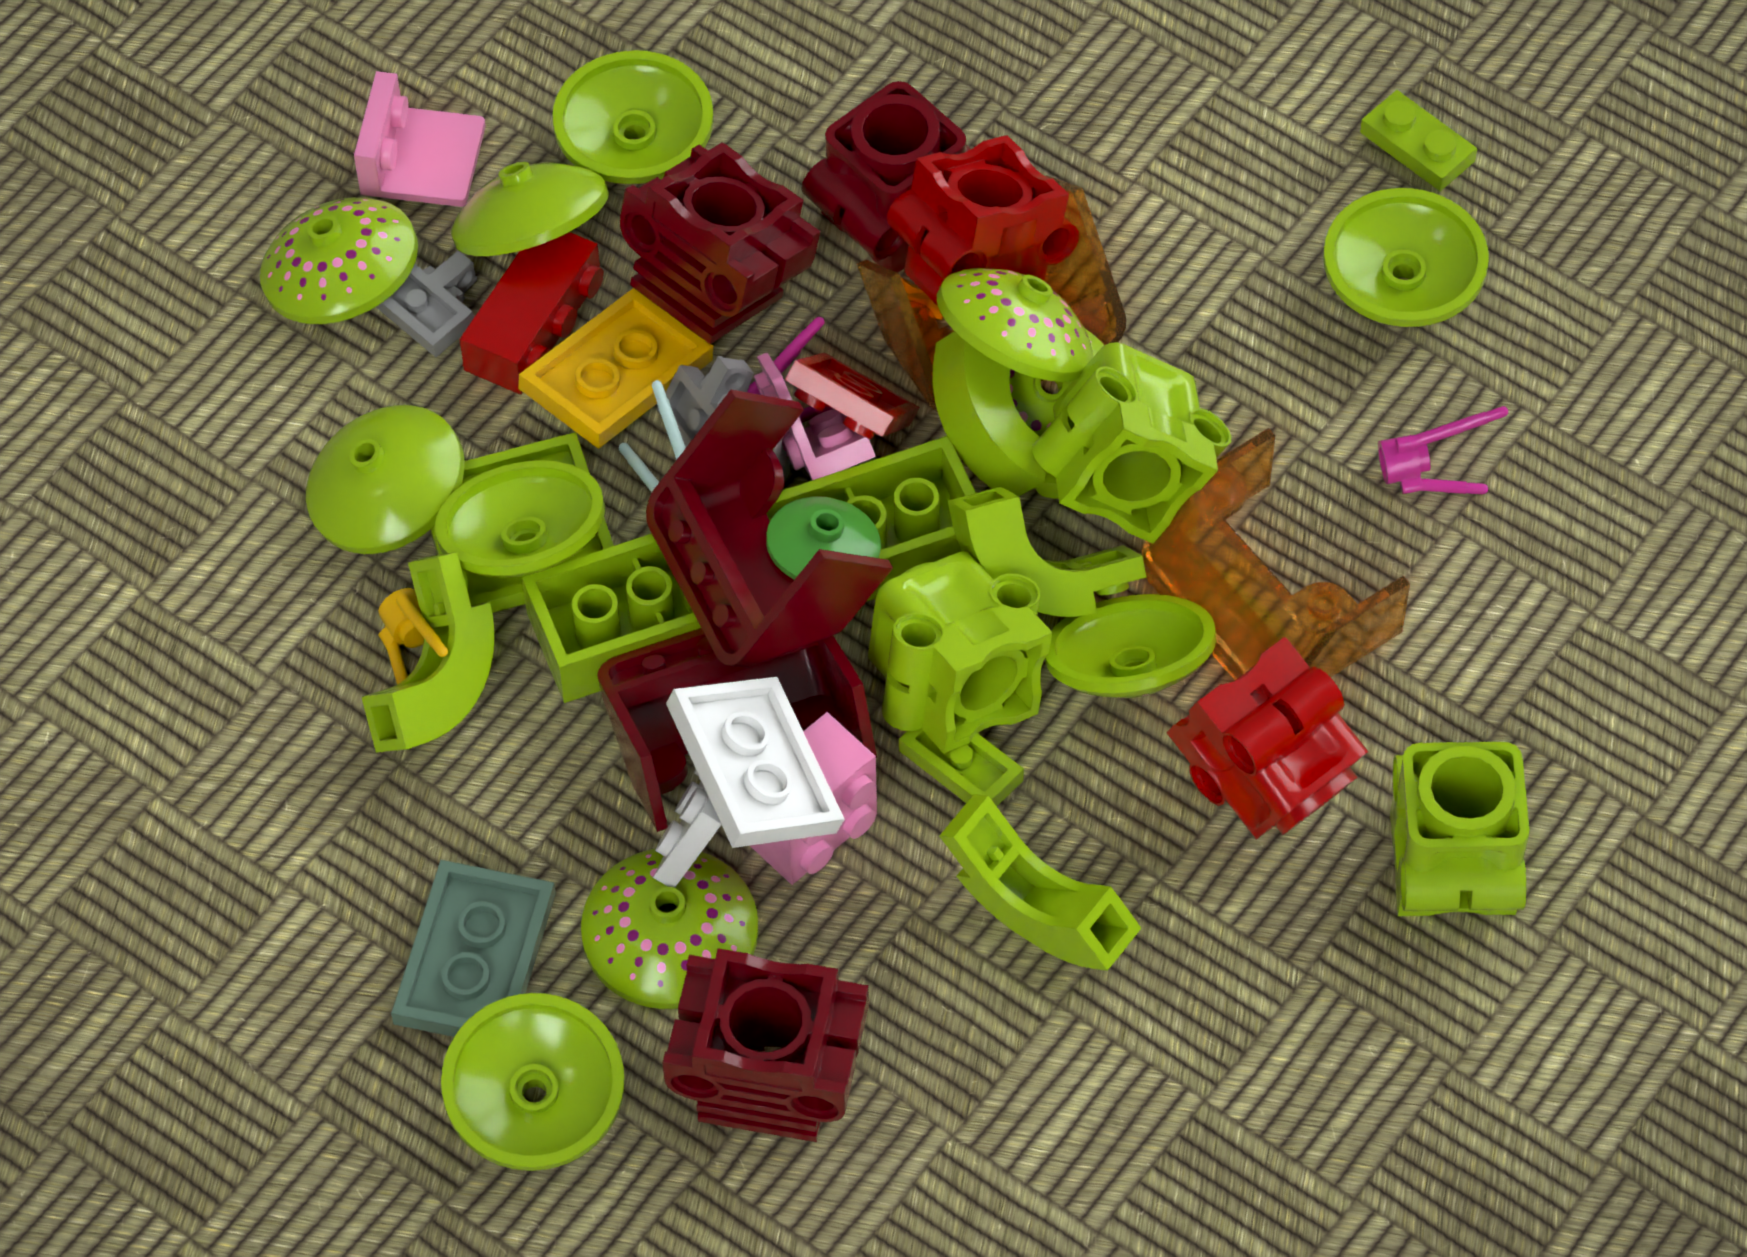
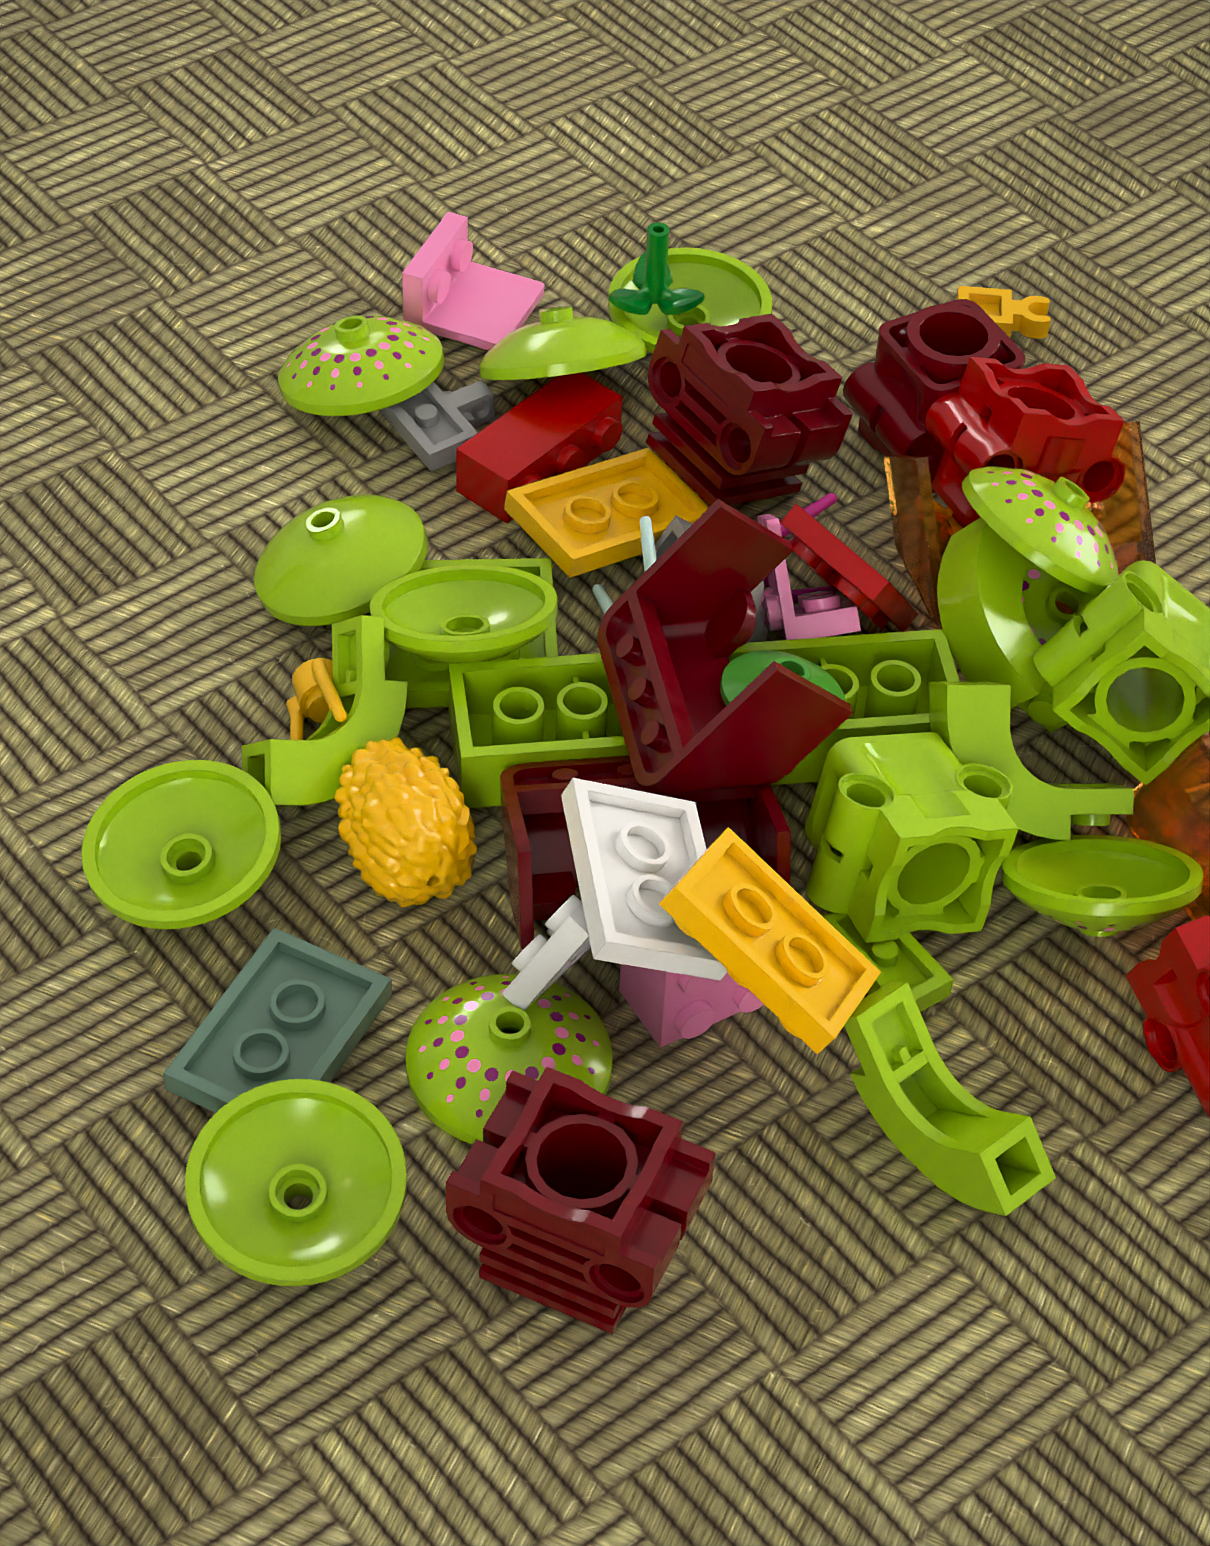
camera: 10 degrees right, 10 degrees down
(323, 778) = (174, 821): none -> lime dish
(523, 734) = (405, 823): none -> yellow piece
(592, 101) = (653, 280): none -> green plant
(870, 791) = (771, 940): none -> yellow plate
(920, 52) = (1023, 315): none -> yellow plate

